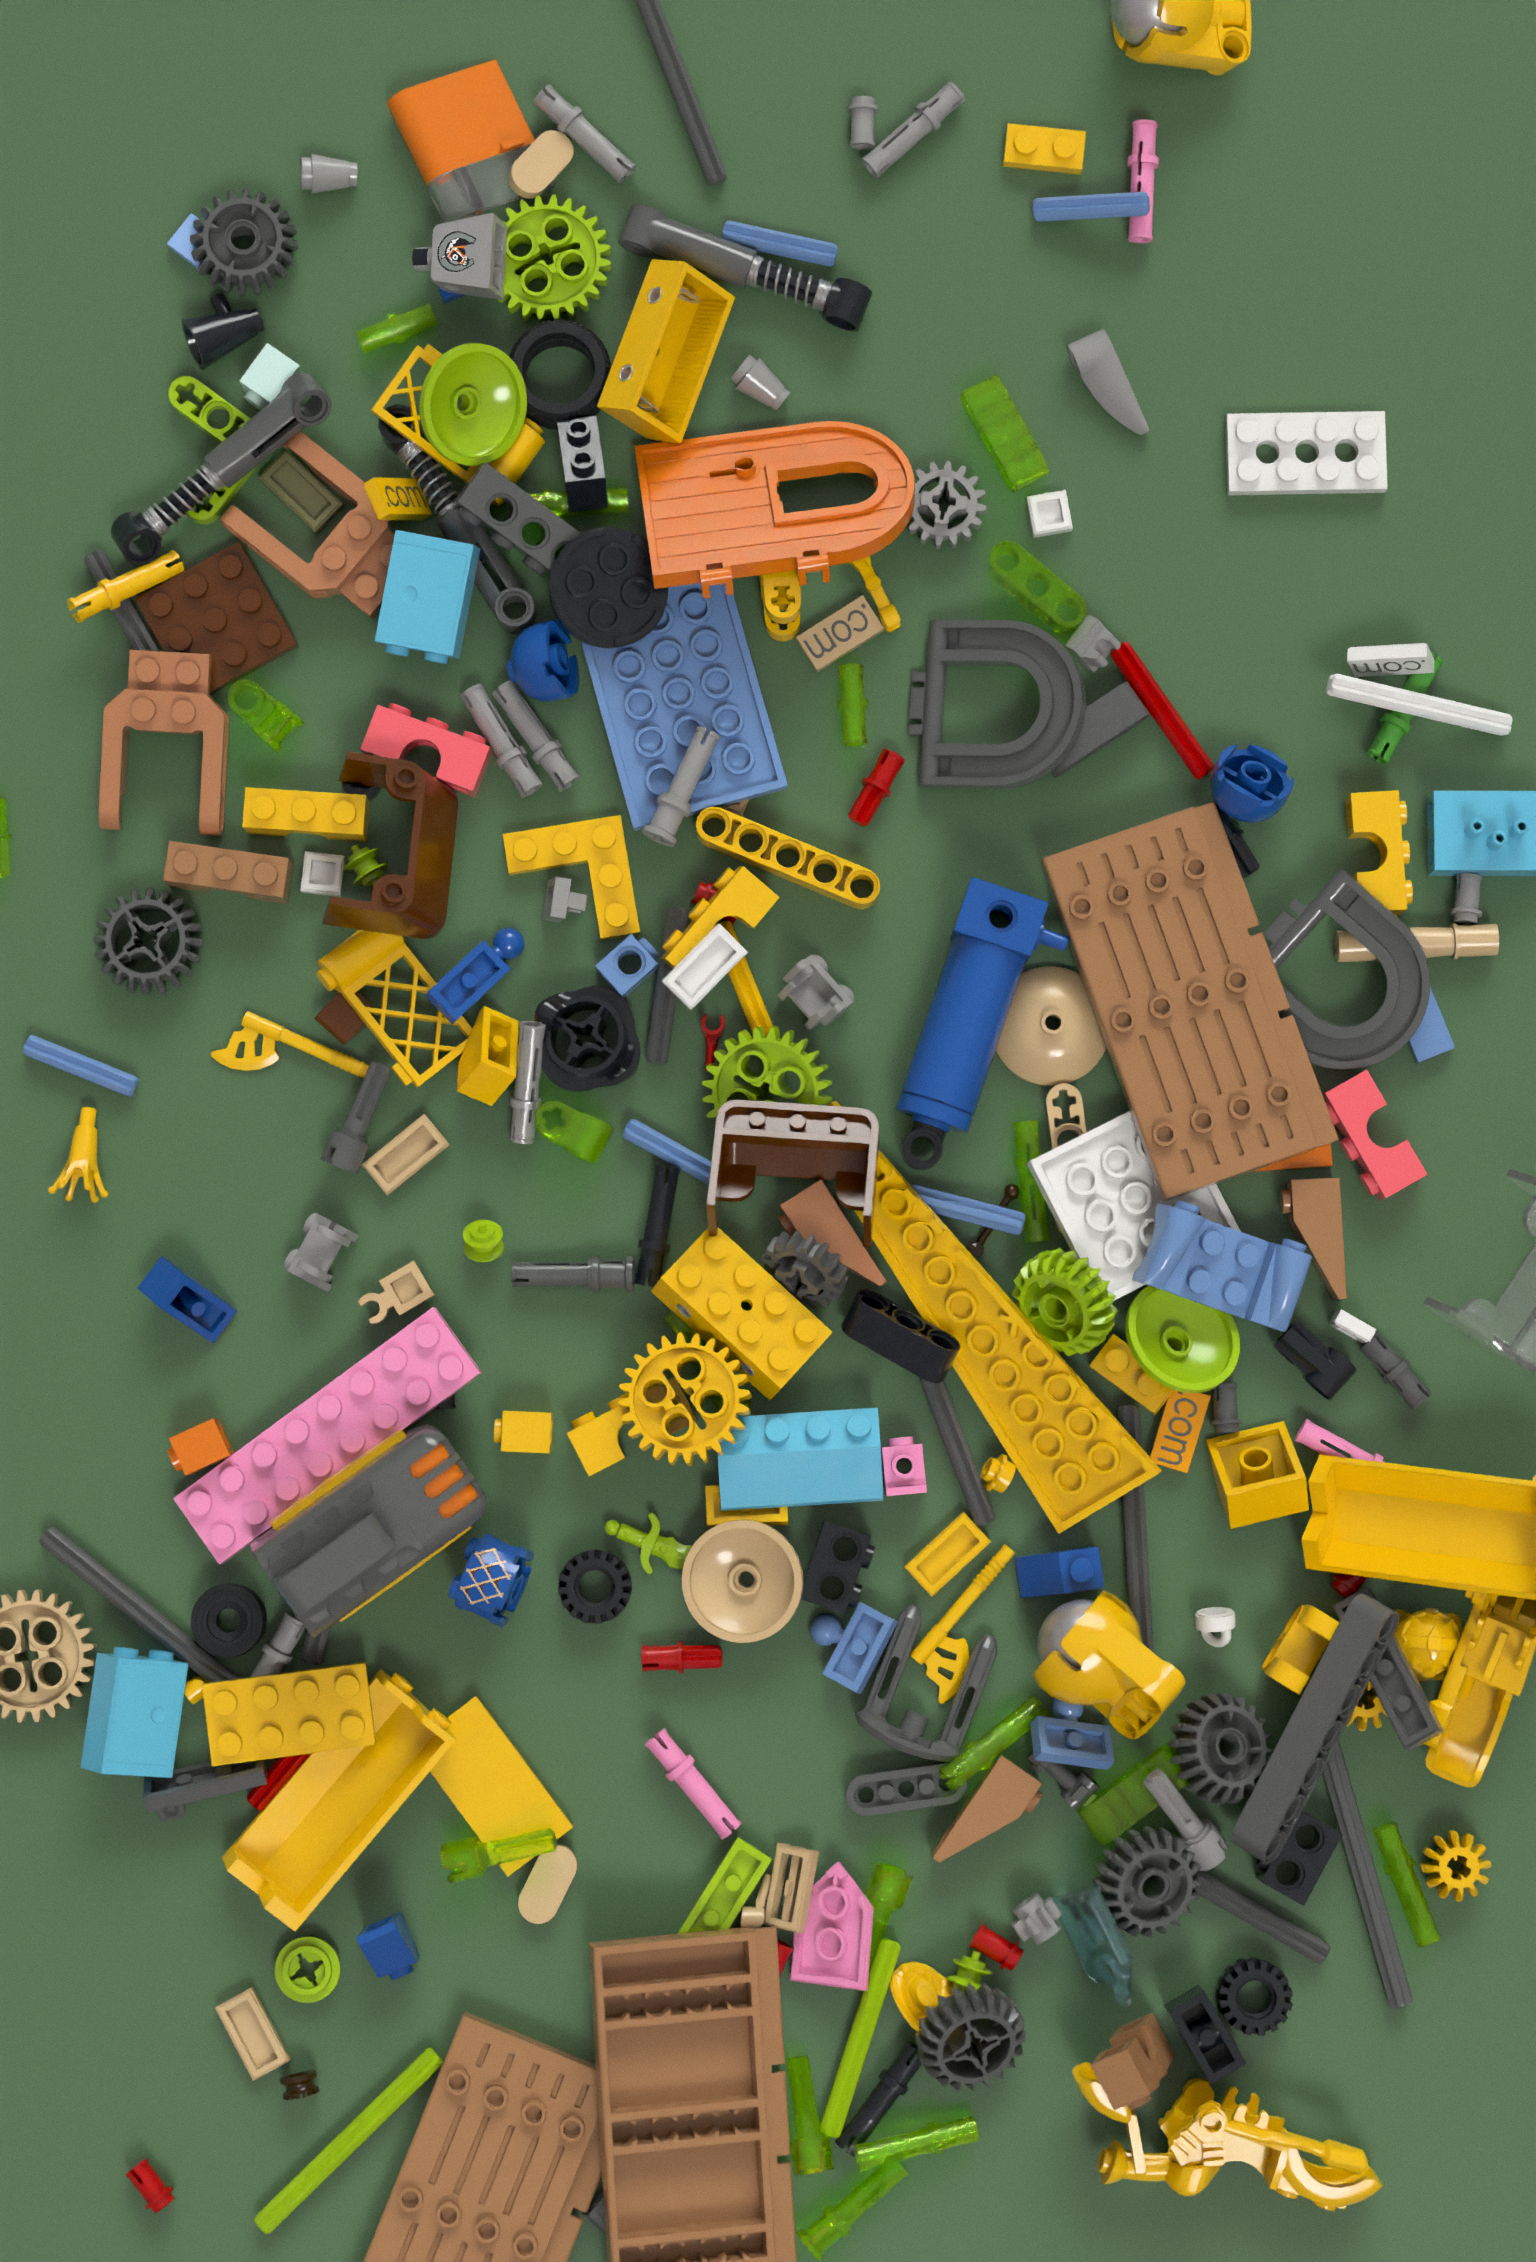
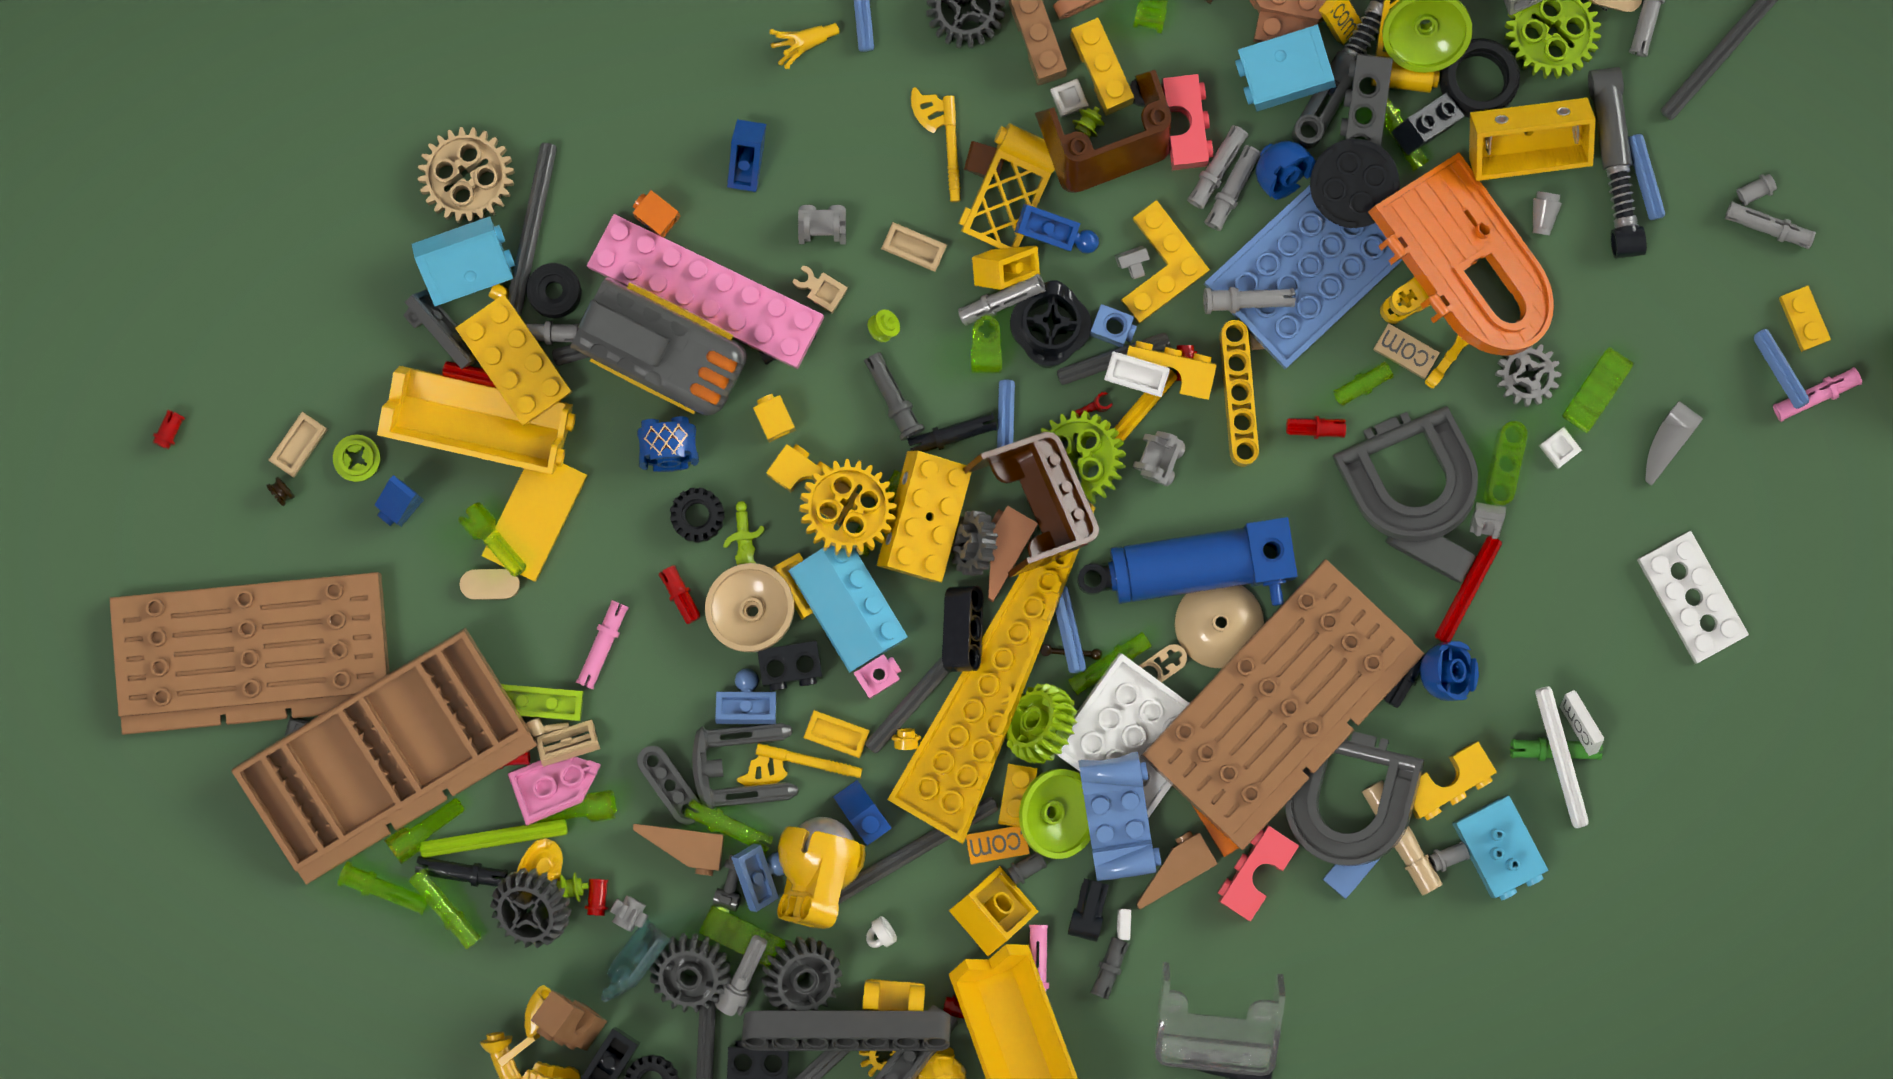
camera: 65 degrees right, 0 degrees up
(347, 1145) = (900, 206): dark grey piece -> none
(348, 2140) = (261, 541): lime axle -> none

